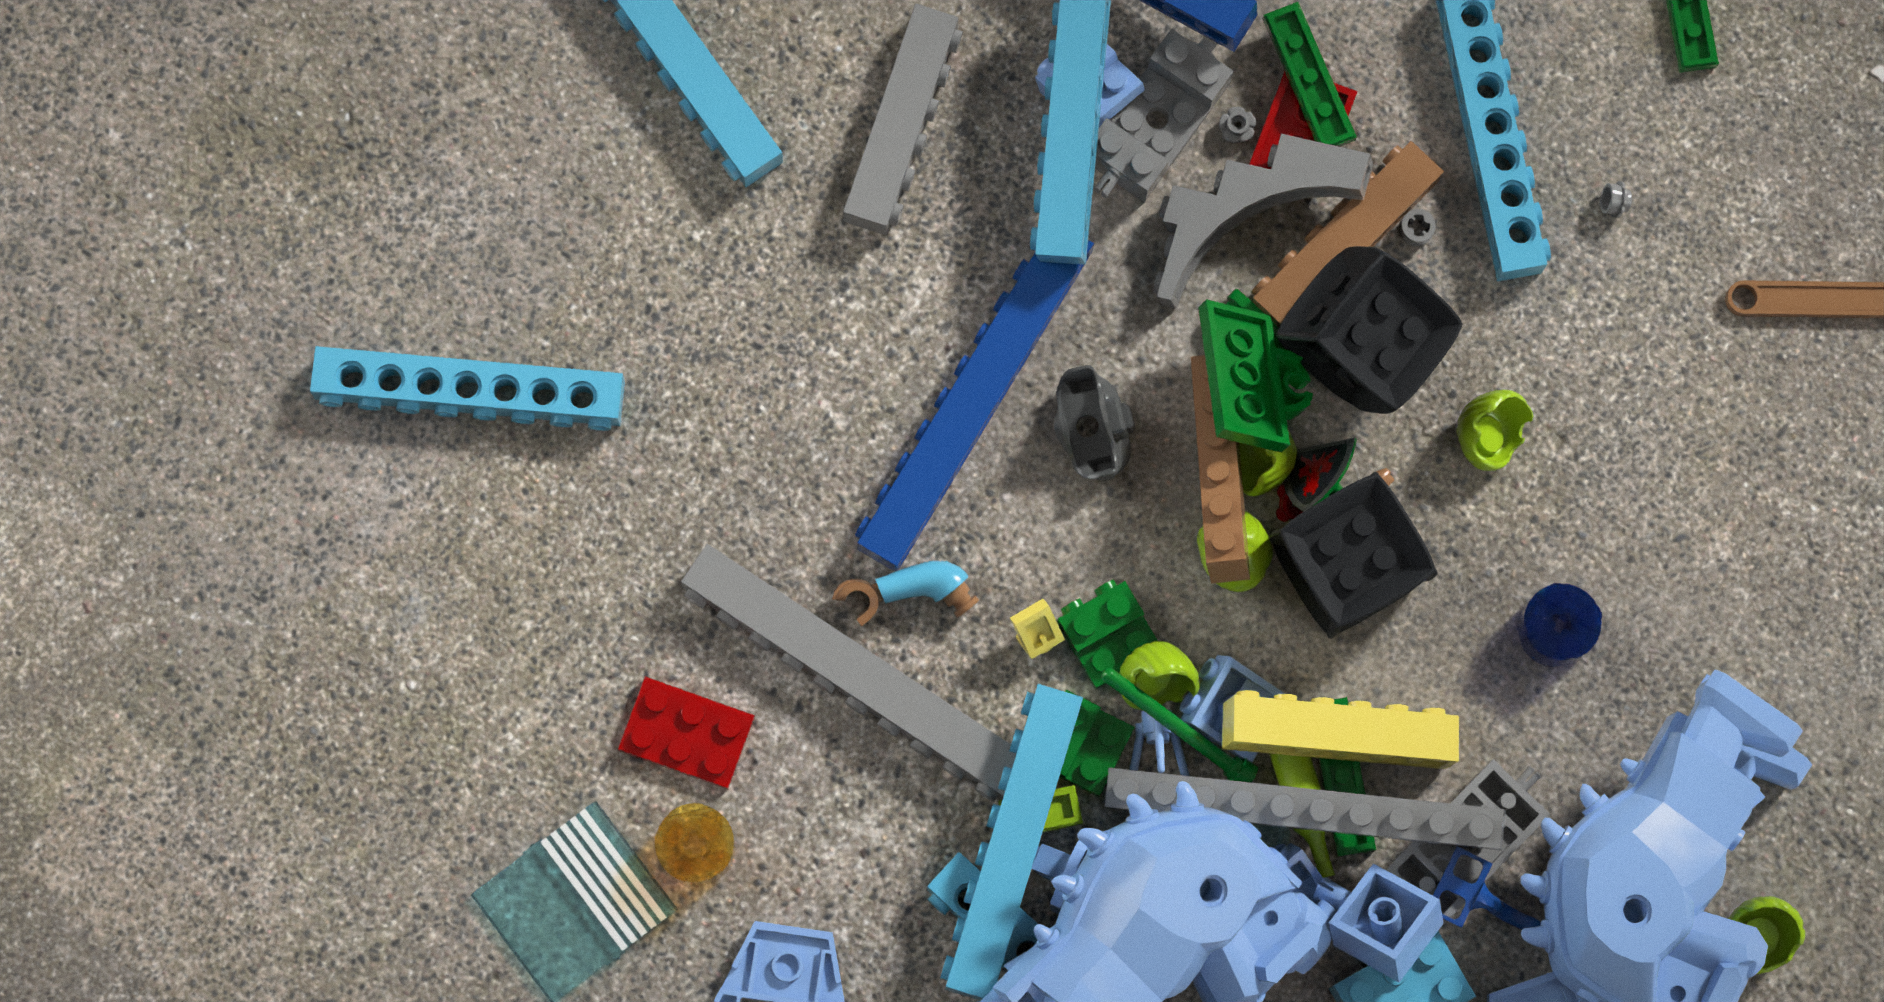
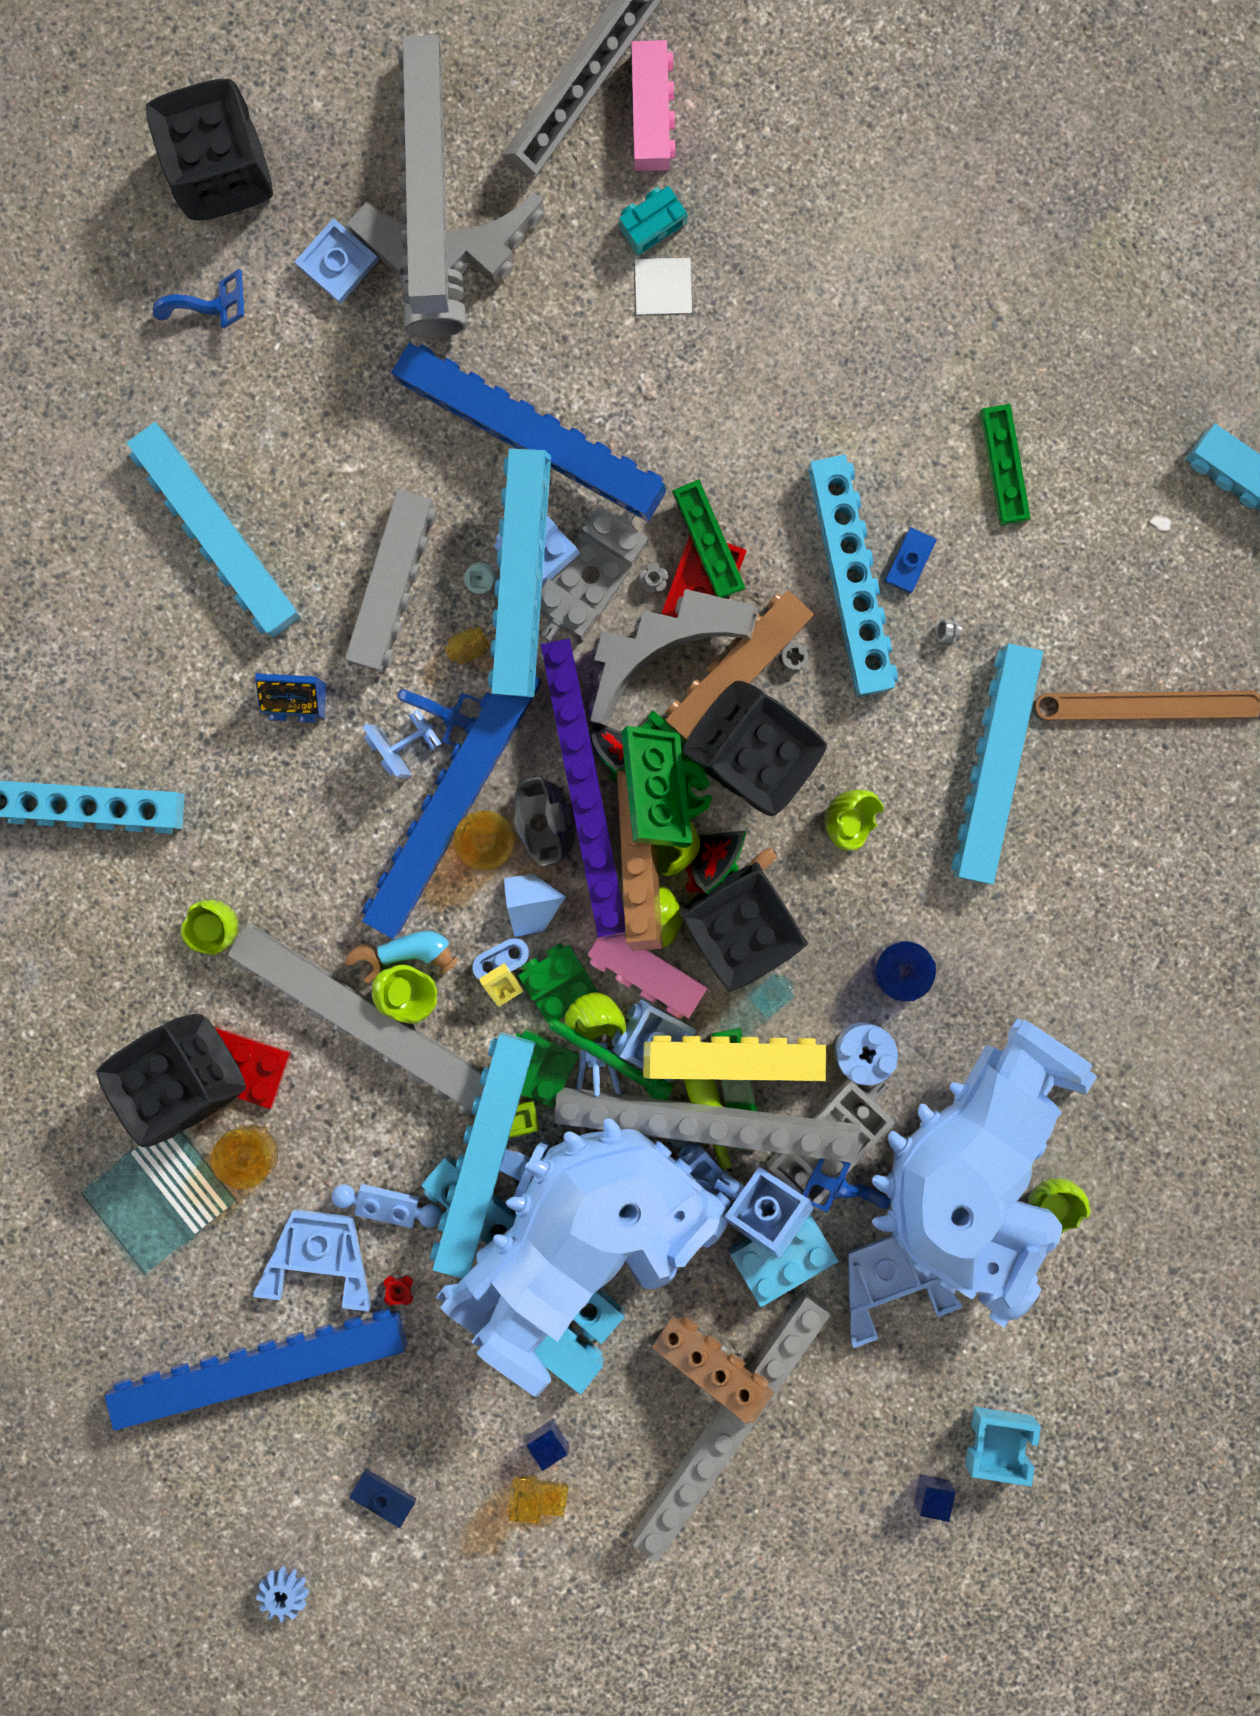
camera: 10 degrees right, 10 degrees up
(610, 732) = (170, 1079): none -> black piece
(657, 547) = (209, 927): none -> lime piece
(772, 257) = (291, 697): none -> slope
(878, 919) = (386, 1206): none -> light blue plate
(901, 342) = (392, 761): none -> light blue plate
(911, 637) = (404, 994): none -> lime piece
(973, 290) = (450, 716): none -> blue piece
(997, 201) = (466, 645): none -> clear yellow brick
(1014, 118) = (479, 578): none -> light aqua tile
(1016, 424) = (468, 842): none -> clear yellow brick
(1033, 592) = (500, 954): none -> light blue plate
(1075, 530) = (530, 903): none -> light blue slope
(1149, 383) = (584, 789): none -> dark purple brick
(1183, 333) = (609, 748): none -> shield
(1224, 619) = (650, 973): none -> bright pink brick
(1378, 664) = (760, 997): none -> clear light blue brick
(1521, 711) = (881, 1060): none -> light blue brick
(1566, 111) = (910, 560): none -> blue plate
(1679, 367) = (997, 763): none -> medium azure brick

